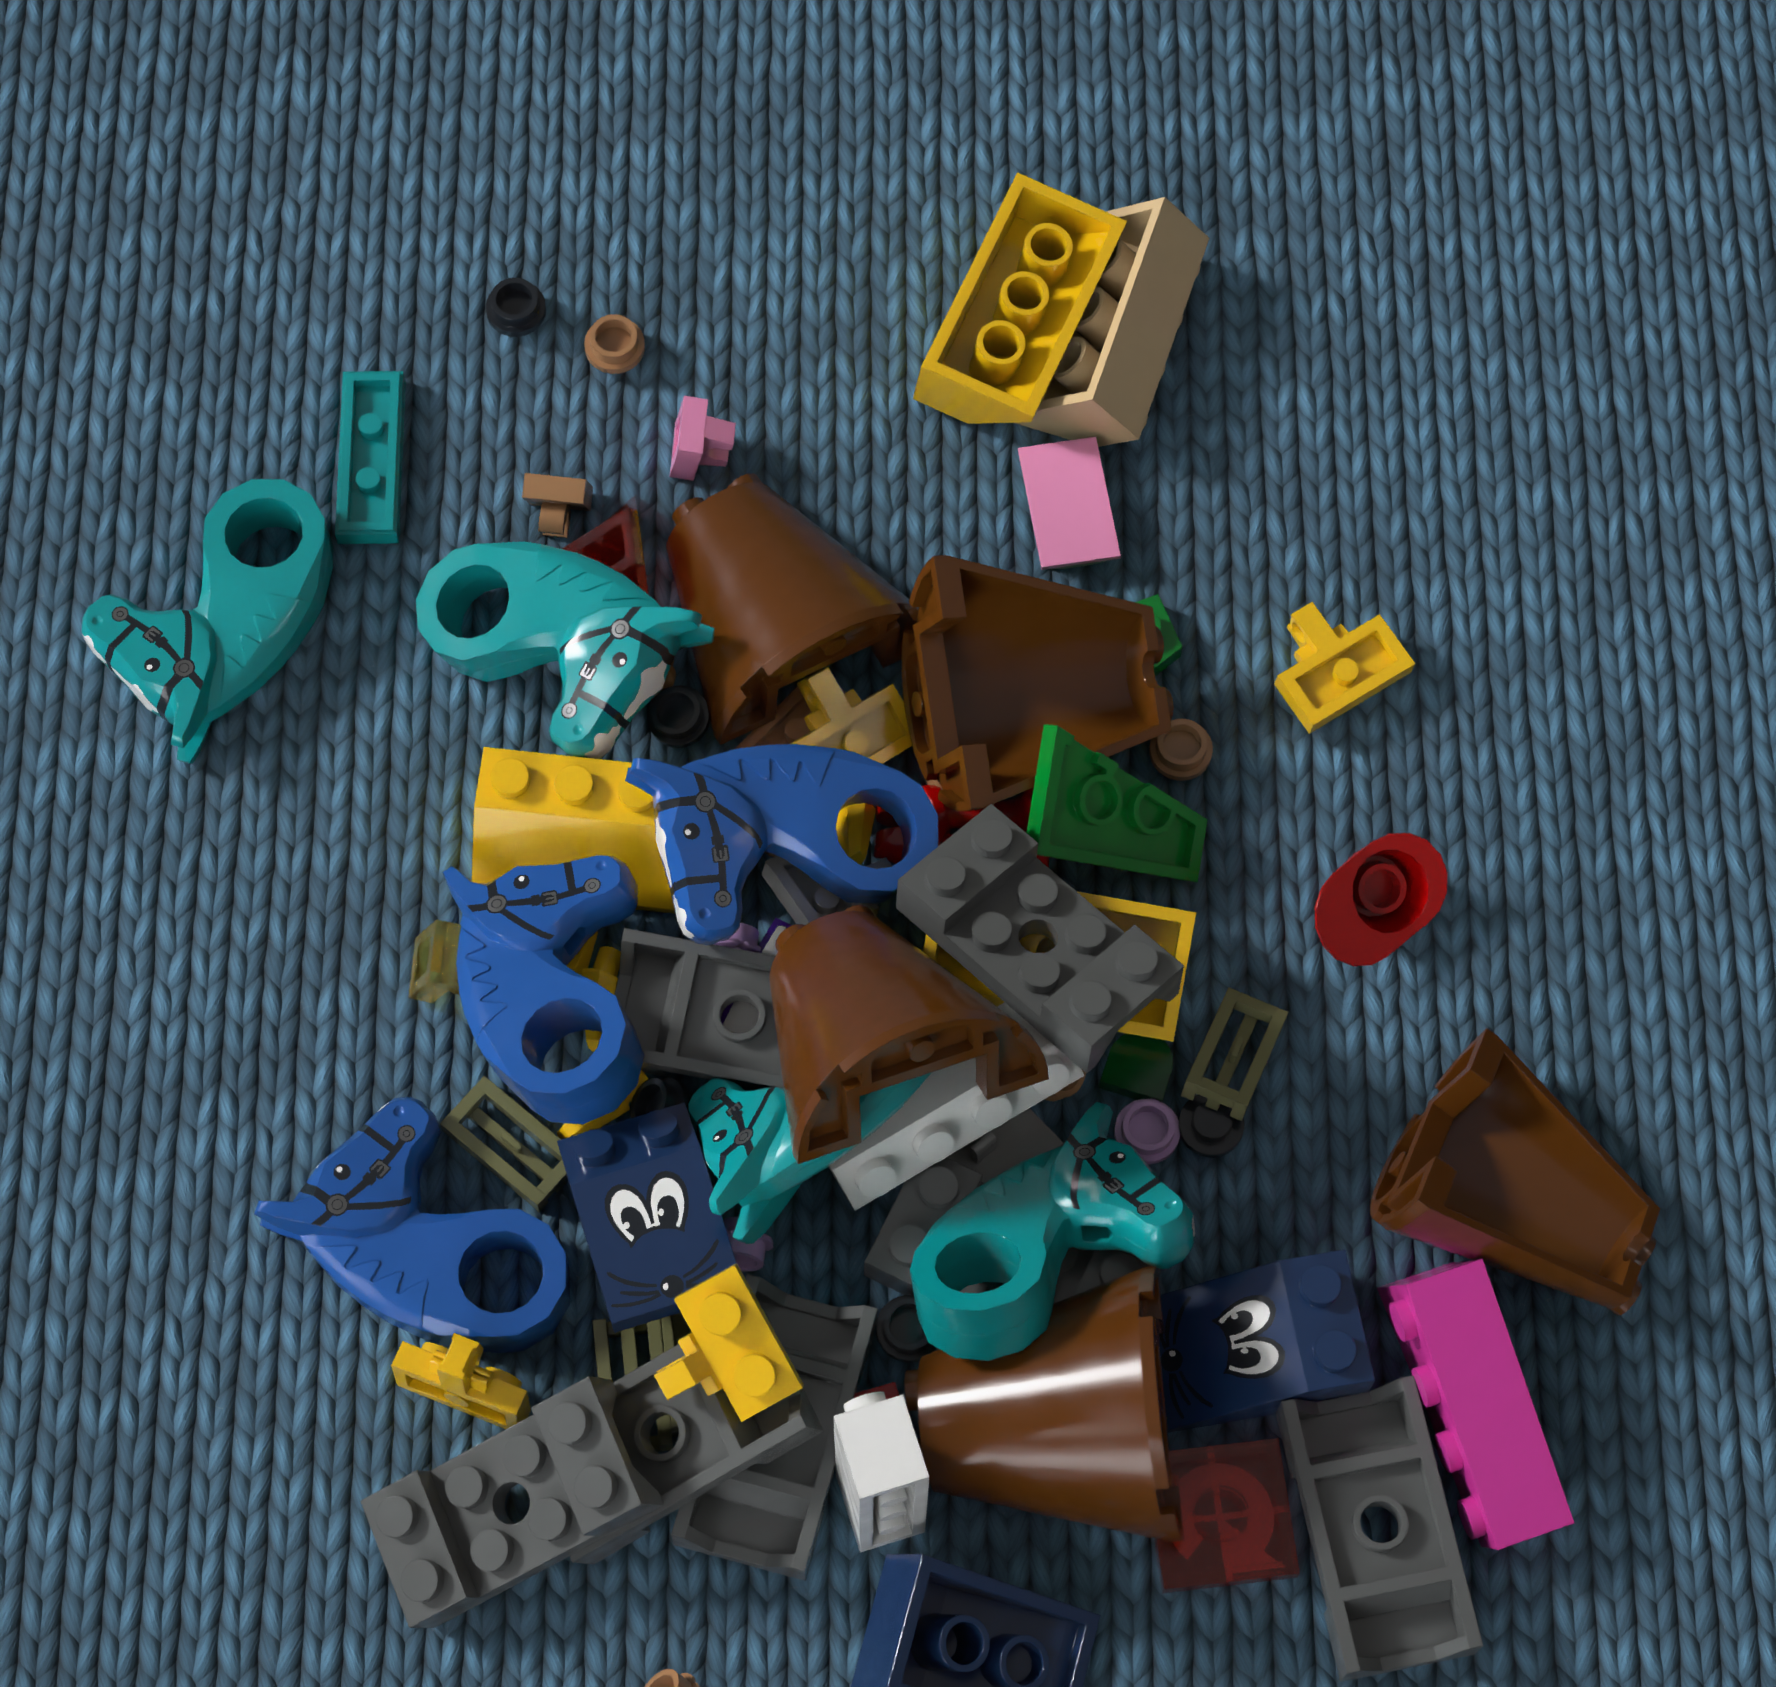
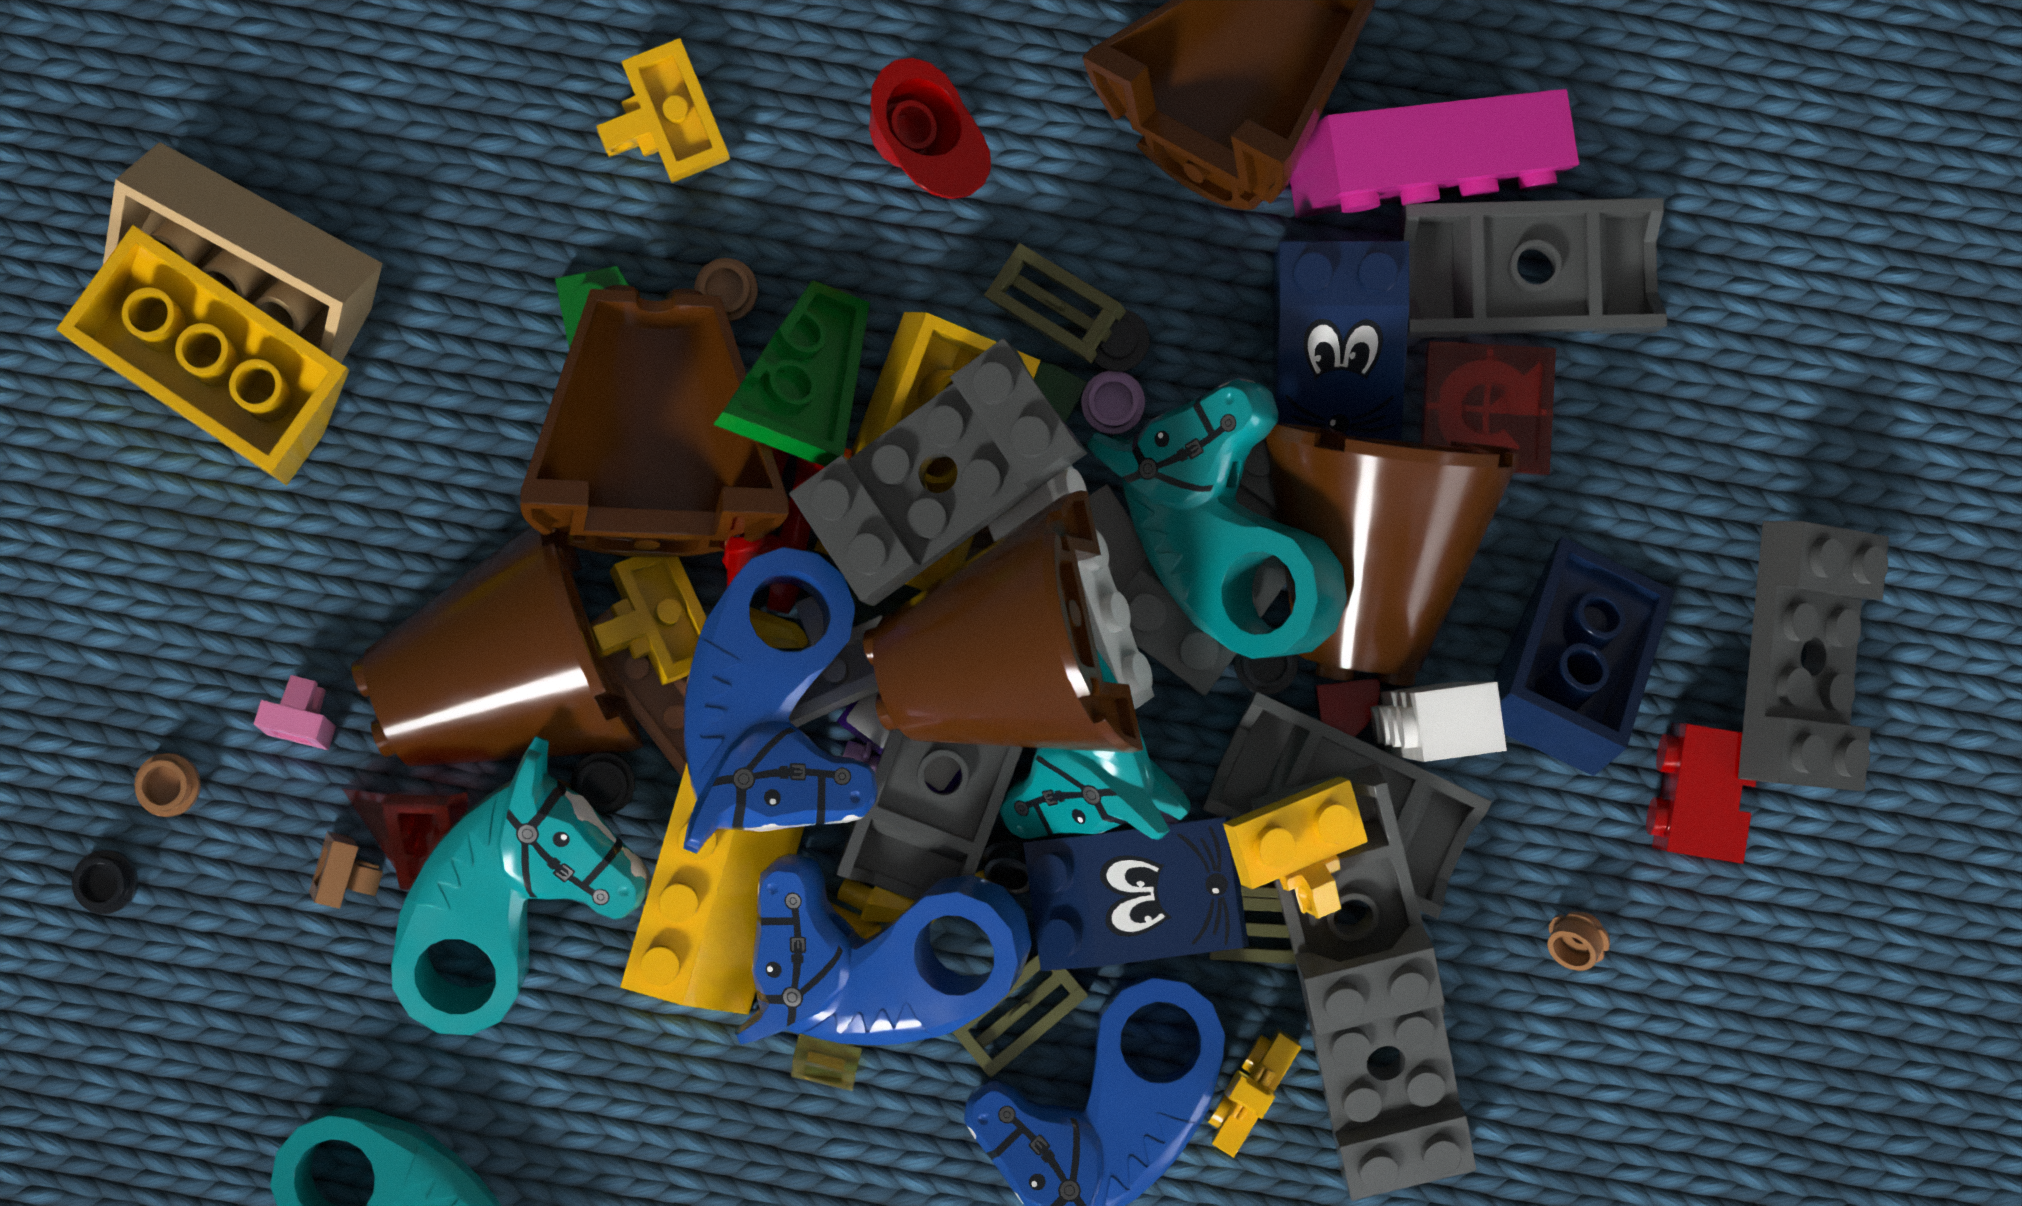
camera: 75 degrees left, 20 degrees up
(370, 457) = (251, 1055): teal tile -> none
(1069, 503) = (437, 348): bright pink piece -> none

